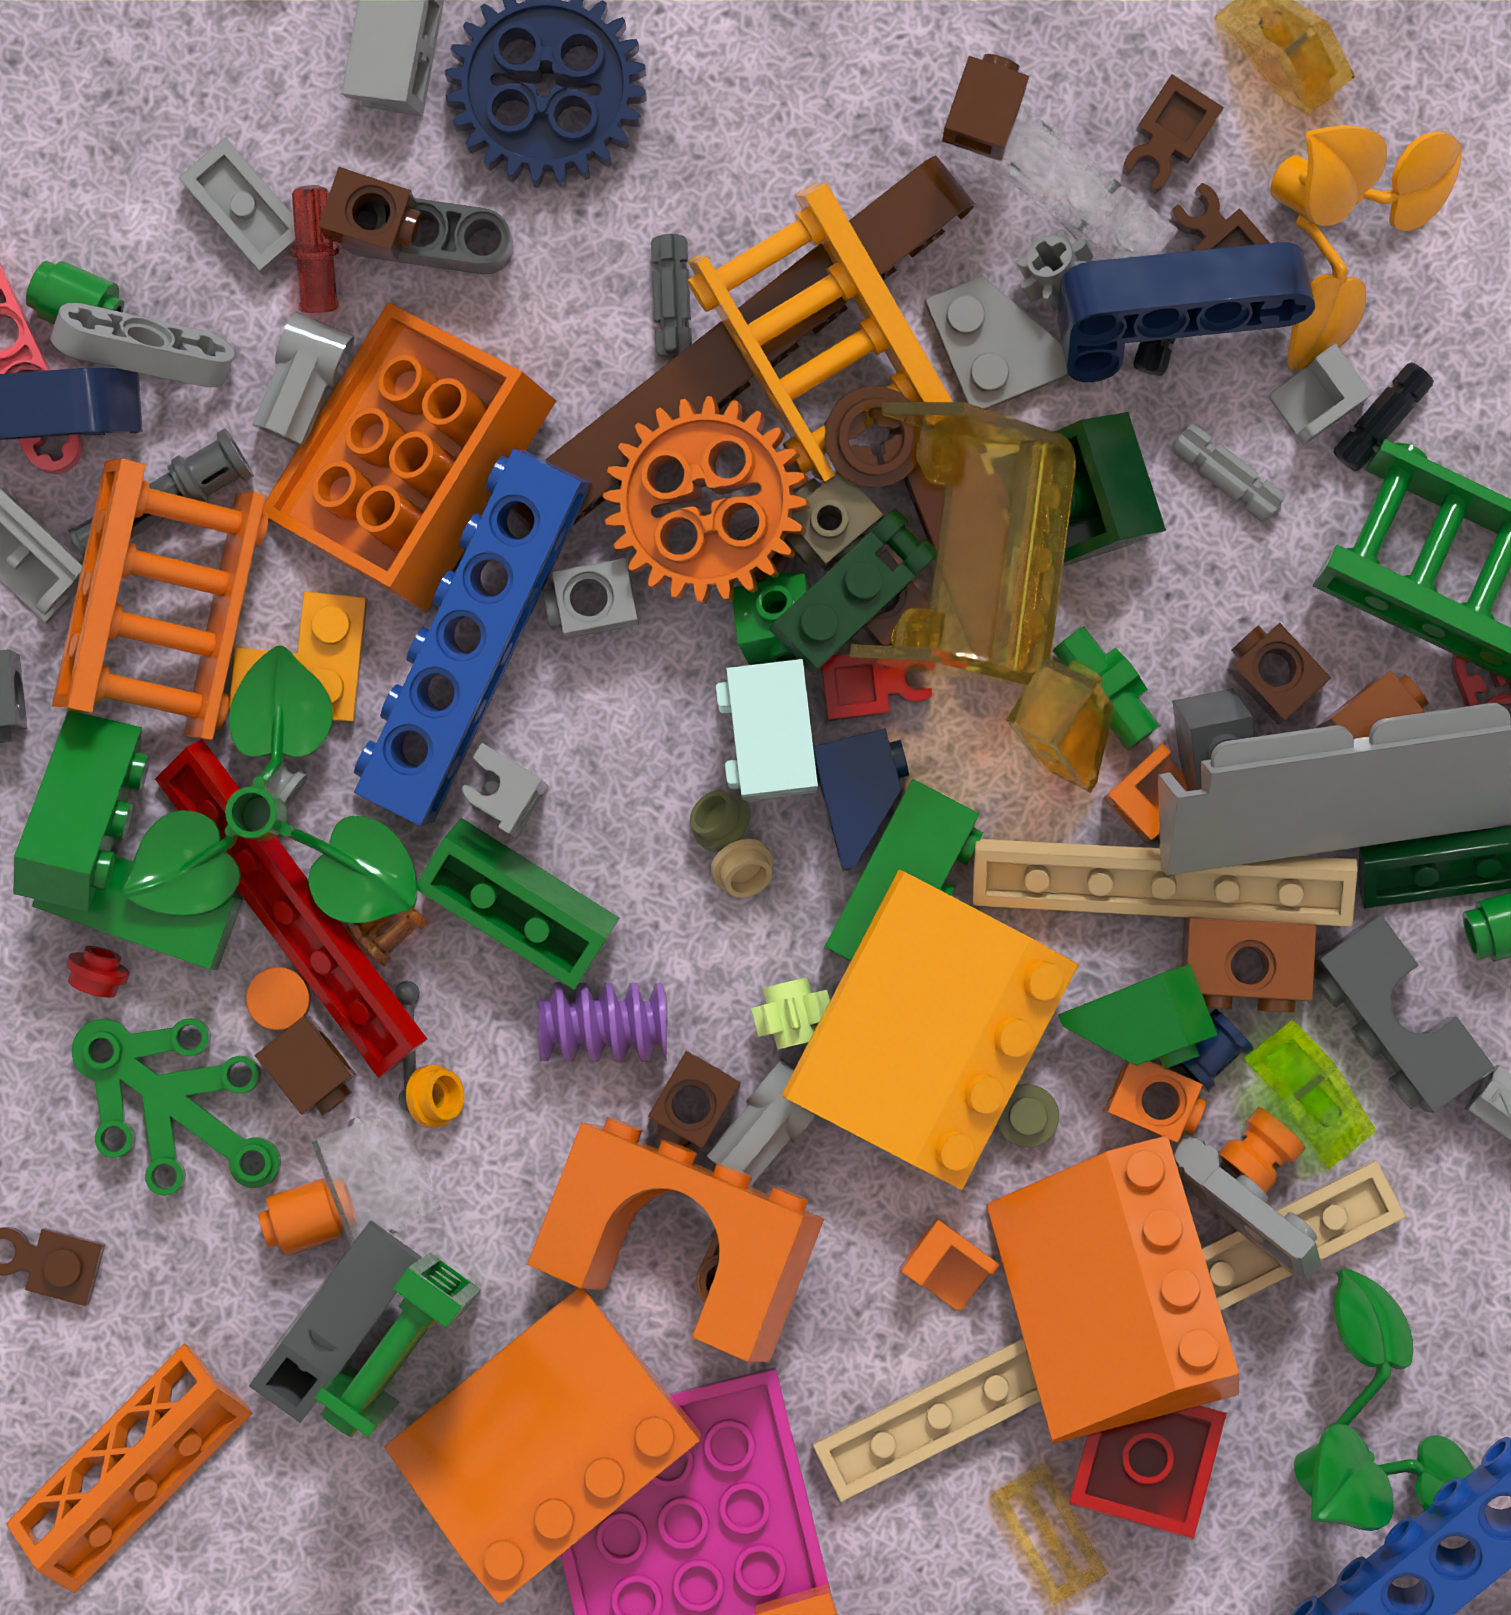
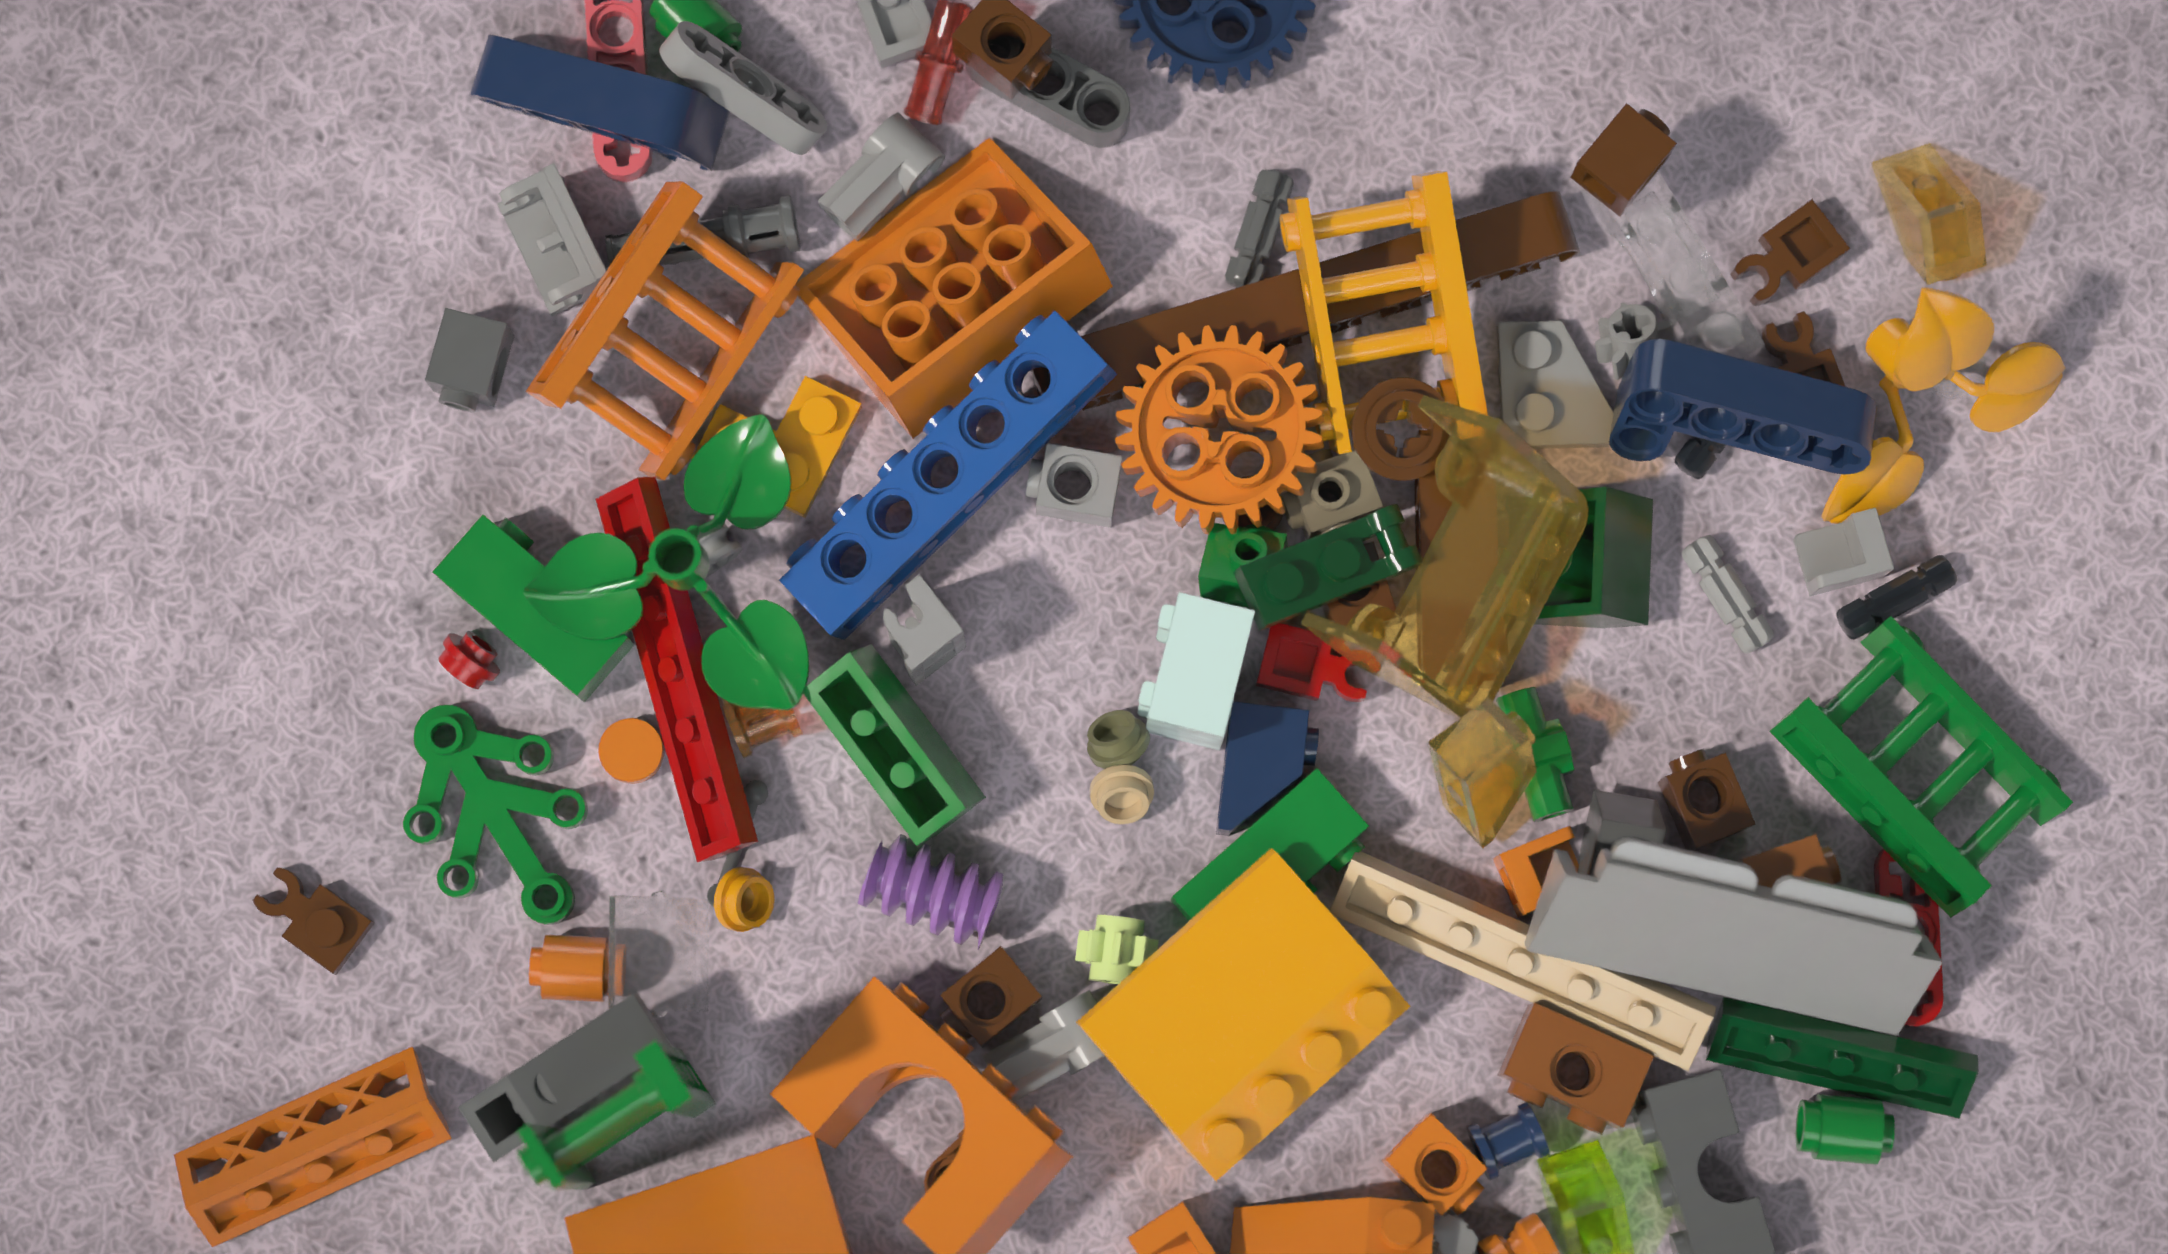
camera: 15 degrees right, 5 degrees down
(80, 811) = (513, 499): green brick -> none
(307, 1067) = (633, 826): reddish brown brick -> none
(1029, 1116) = (1307, 1137): olive plate -> none
(1147, 1019) = (1457, 1084): green slope -> none

